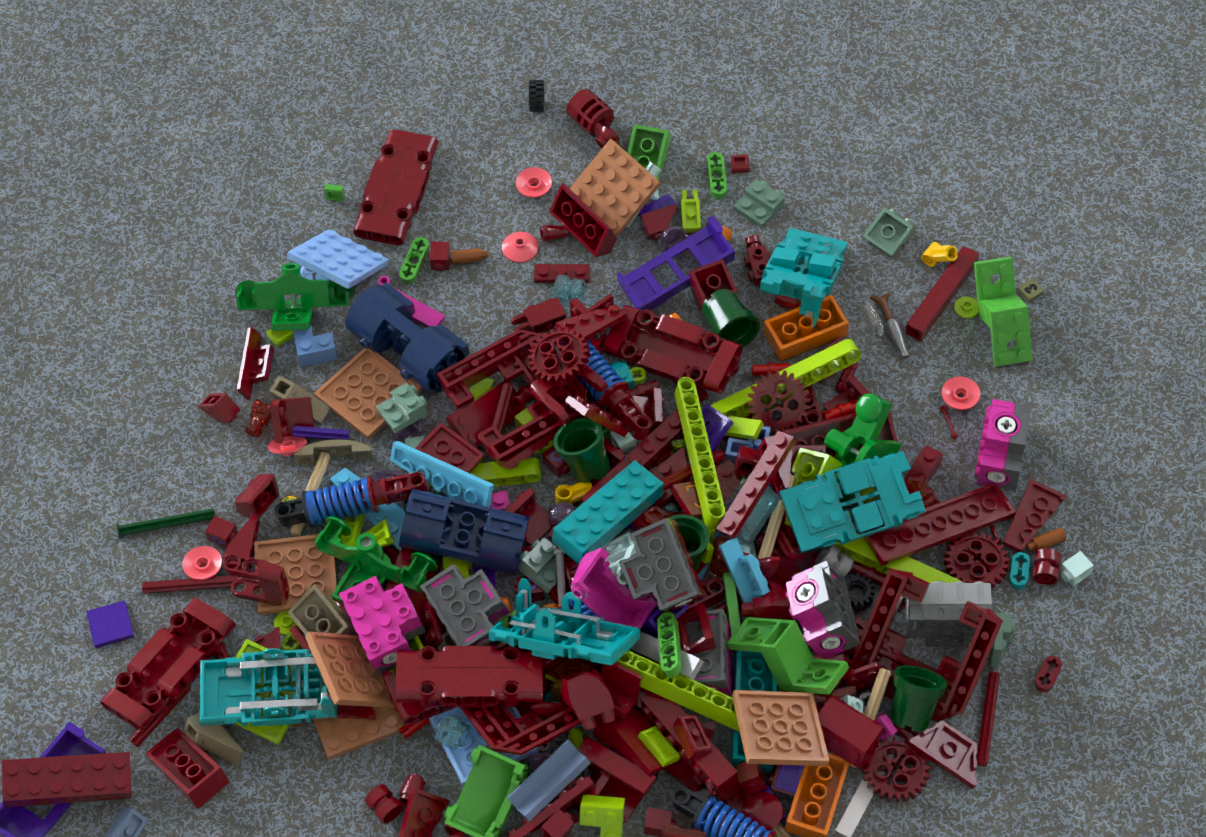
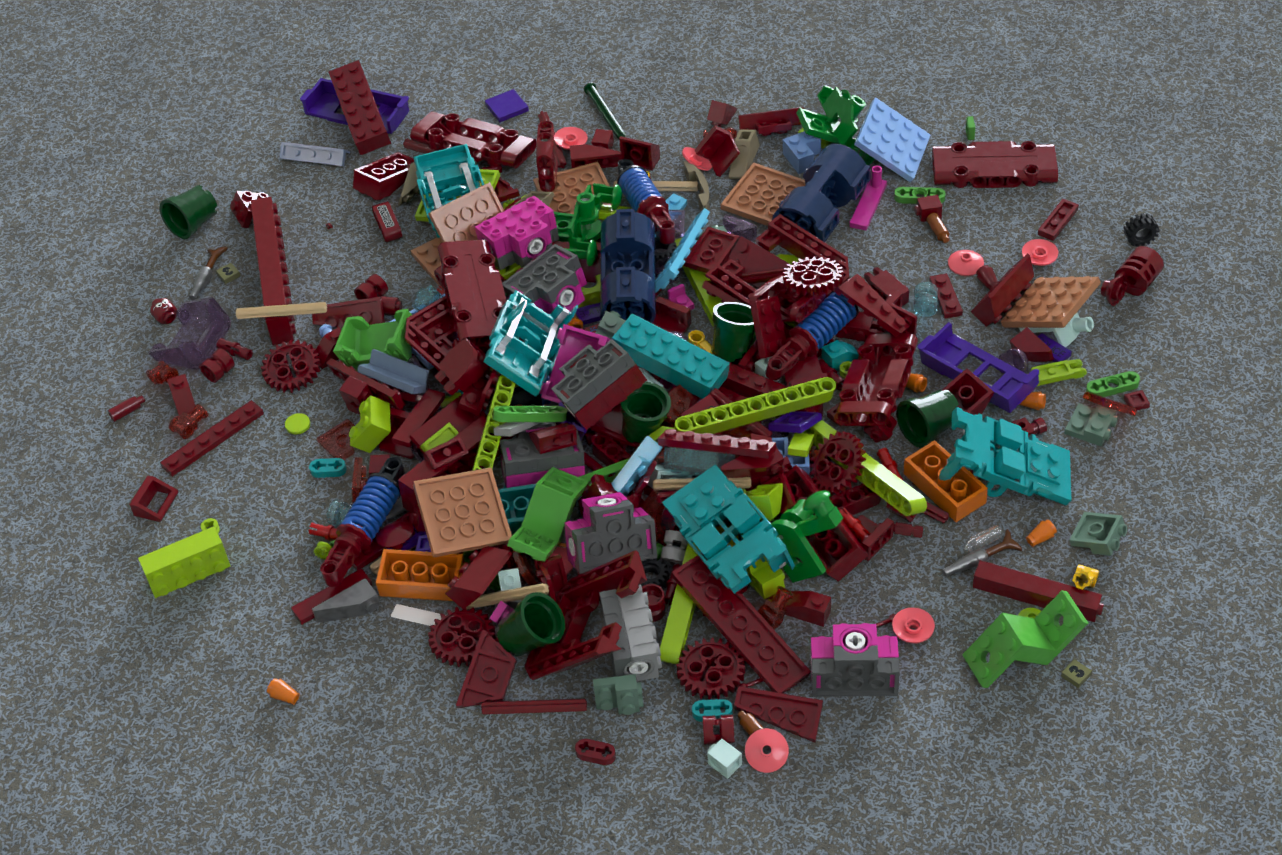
camera: 80 degrees right, 10 degrees down
(270, 776) = (387, 221): none -> dark red beam
(320, 433) = (716, 177): dark purple axle -> none
(403, 407) = (750, 213): sand green plate -> none
(491, 157) = (1058, 219): none -> dark red plate
(649, 145) = (1115, 324): bright green slope -> none
(748, 180) = (1110, 403): none -> clear red tile
(877, 273) = (1042, 532): none -> orange cone
(1073, 534) = (766, 762): none -> coral dish

